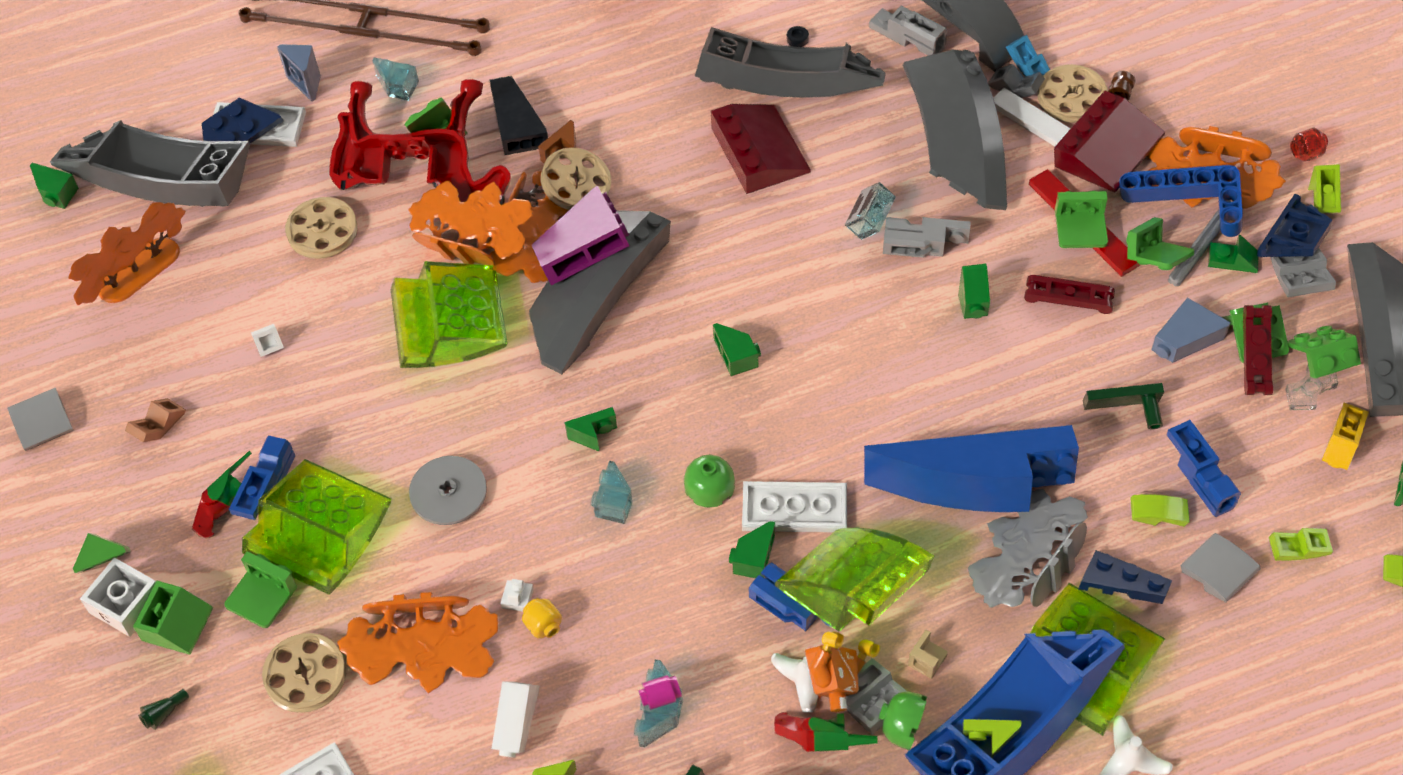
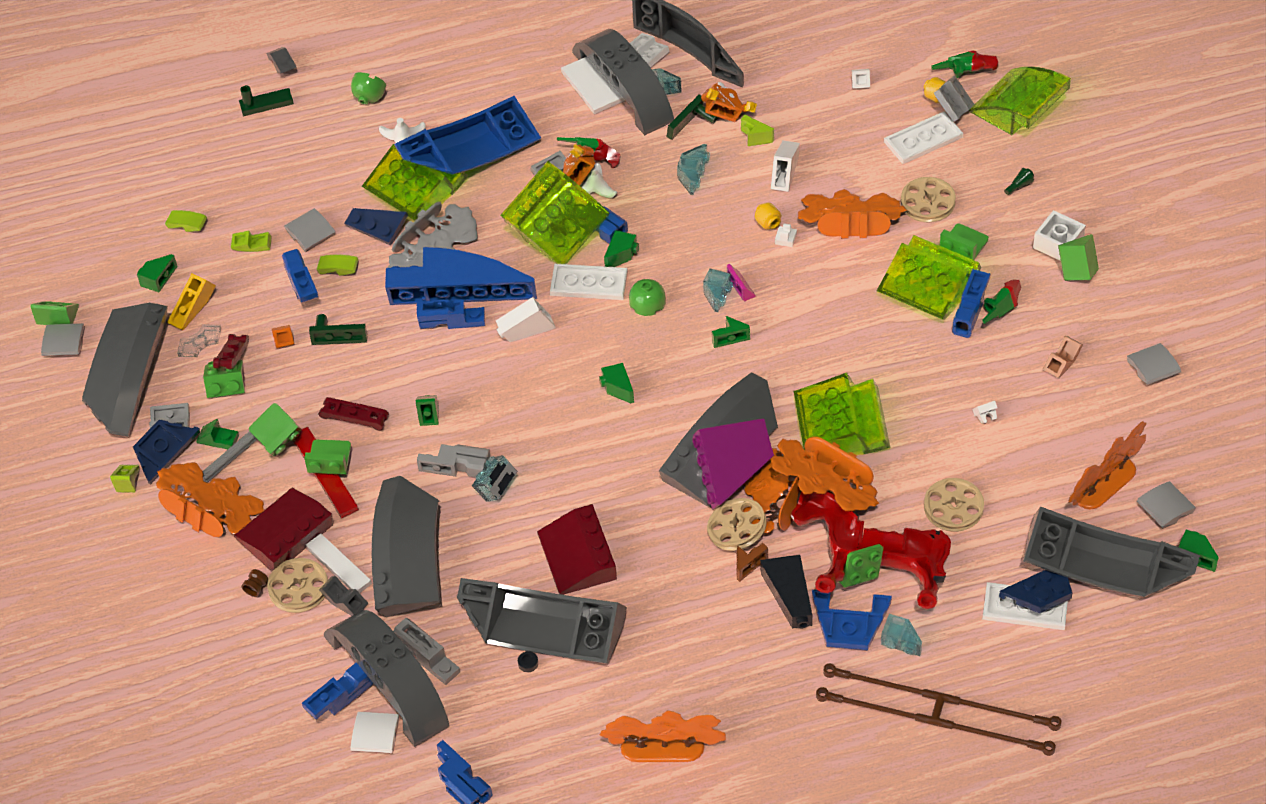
camera: 175 degrees left, 5 degrees down
(72, 238) = (1166, 504): none -> light grey slope
(172, 618) = (1021, 224): bright green slope -> none
(301, 68) = (990, 638): sand blue slope -> none
(445, 82) = (848, 627): none -> blue wing
(461, 502) = (823, 301): light grey piece -> none
(580, 510) = (740, 284): none -> dark pink slope
(660, 692) = (690, 156): dark pink brick -> none
(869, 423) = (525, 321): none -> white slope
(902, 718) = (538, 145): bright green cylinder -> none
(926, 656) = (517, 184): tan panel -> none
(981, 423) = (449, 312): none -> blue plate
(999, 730) = (482, 136): lime slope -> none
(1026, 57) = (326, 614): dark azure slope -> none
(1189, 331) = (275, 376): sand blue slope -> none
(1190, 189) = (233, 479): blue beam -> none
(1195, 391) = (282, 336): none -> orange tile
(1309, 144) = (120, 517): clear red head -> none
(1327, 350) = (181, 358): bright green bracket -> none

